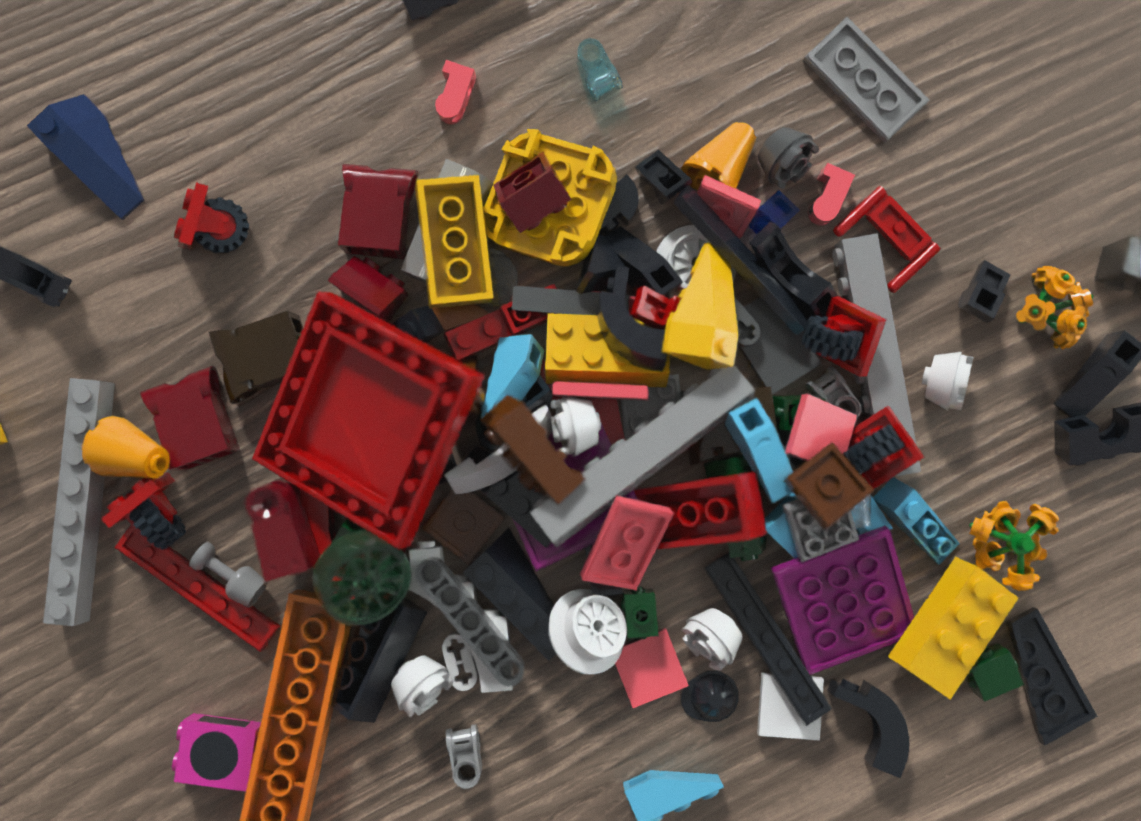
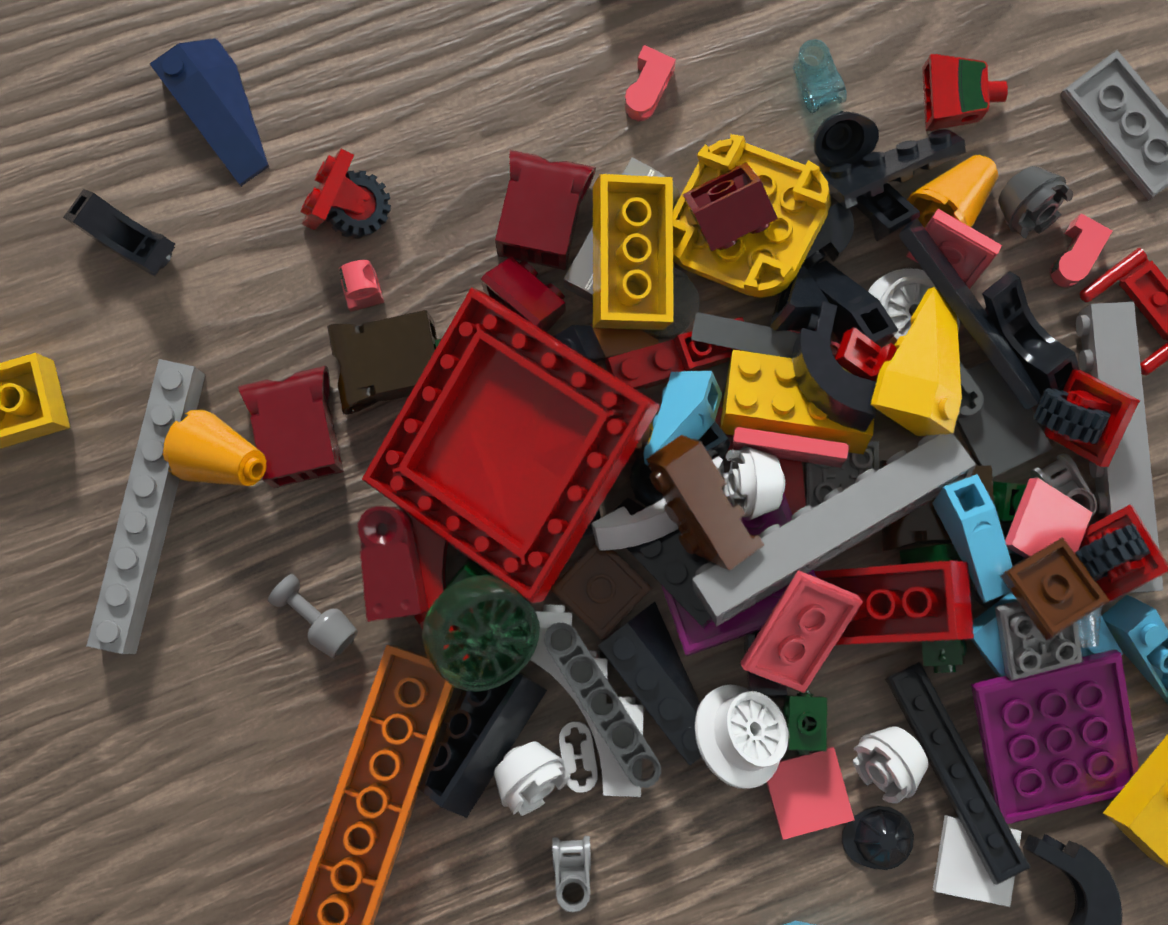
camera: 10 degrees right, 5 degrees down
(148, 512) = (229, 528): plate -> none
(198, 589) = (272, 628): red tile -> none
(215, 751) = (270, 831): dark pink brick -> none
(232, 294) = (360, 285): none -> coral leg
(624, 121) = (845, 138): none -> black piece
(670, 139) = (878, 168): none -> black wing
(716, 68) = (958, 91): none -> red torso
(776, 209) = (1015, 259): clear blue bracket -> none

